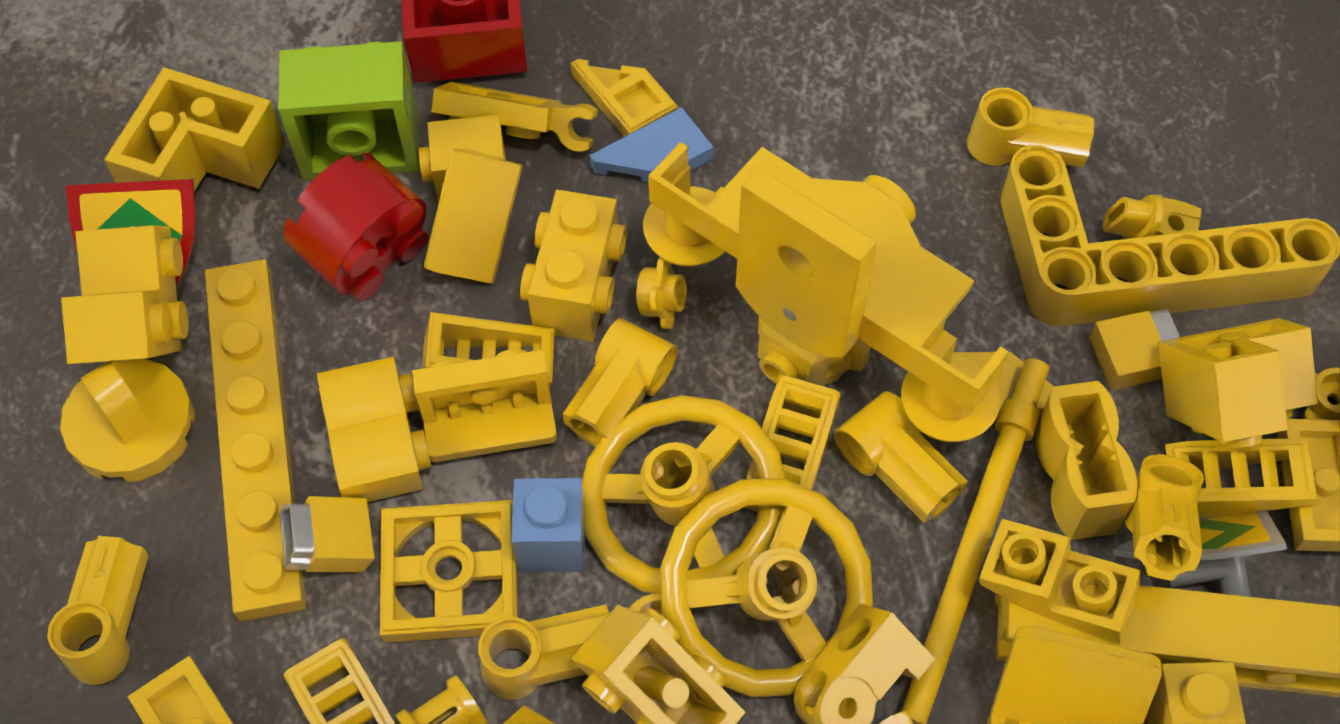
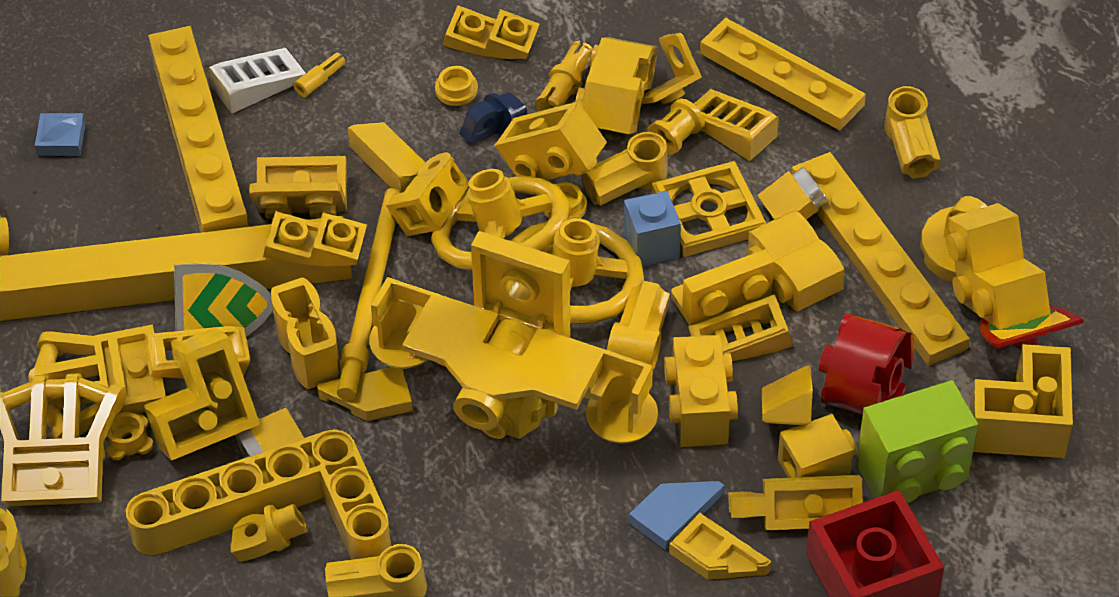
camera: 165 degrees right, 10 degrees down
(1166, 516) = (250, 275): yellow piece -> none

